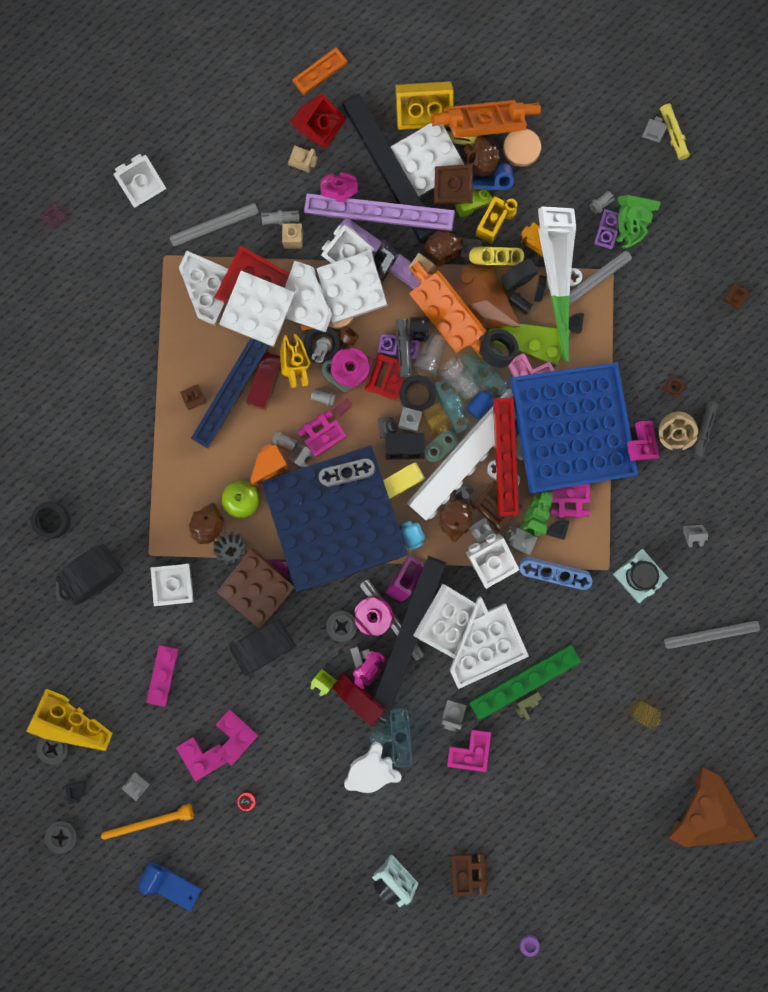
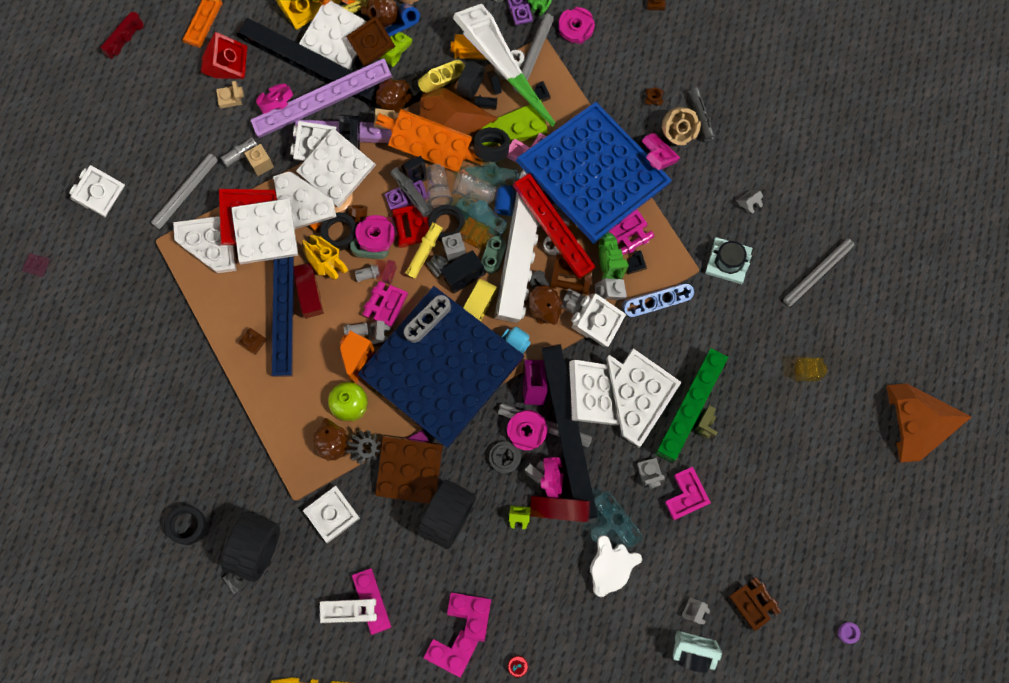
camera: 30 degrees left, 10 degrees down
(138, 673) = (347, 611): none -> white plate
(242, 43) = (122, 34): none -> dark red plate
(323, 346) = (341, 230): light grey pin -> none
(388, 404) = (421, 255): none -> light yellow pin
(415, 849) = (695, 610): none -> light grey tile
(494, 218) = (421, 48): yellow hinge -> none
(649, 266) = (573, 34): none -> dark pink plate

